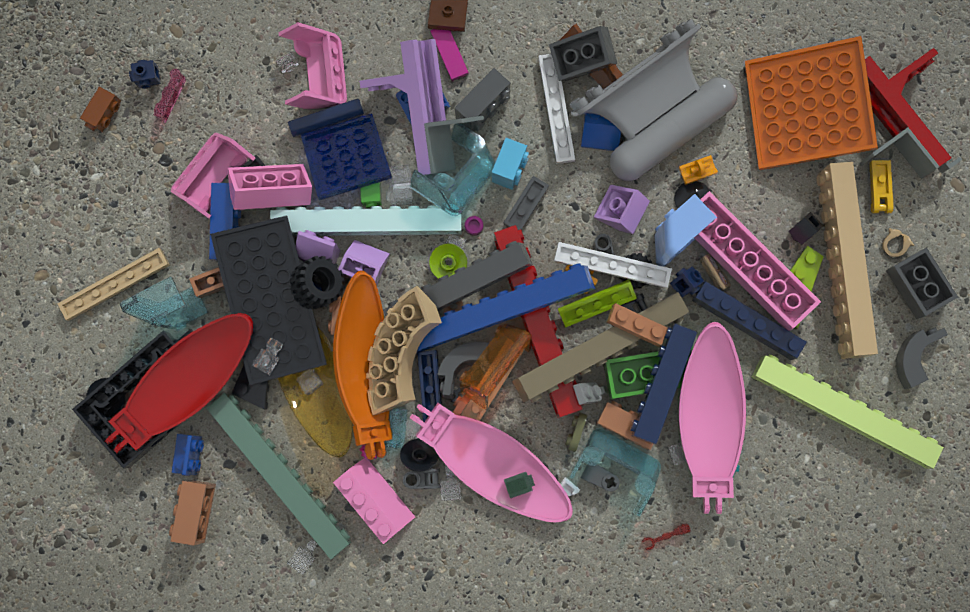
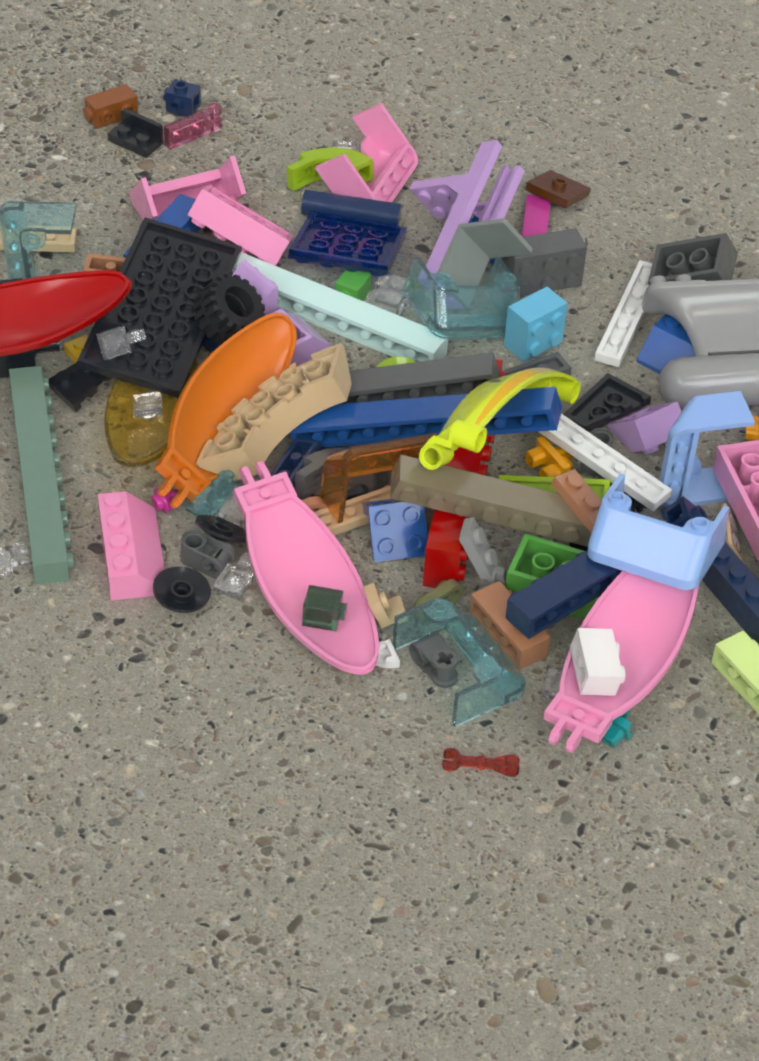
camera: 25 degrees right, 35 degrees down
(135, 126) = (137, 133): none -> black bracket
(285, 80) = (304, 172): none -> lime arch
(436, 517) = (181, 589): none -> black dish
(510, 394) = (396, 529): none -> bracket
(551, 295) = (468, 420): none -> neon yellow panel
(551, 457) = (382, 607): none -> tan bracket
(584, 202) = (606, 402): none -> black wing
(700, 358) = (654, 547): none -> light blue windscreen
(707, 447) = (597, 661): none -> white brick

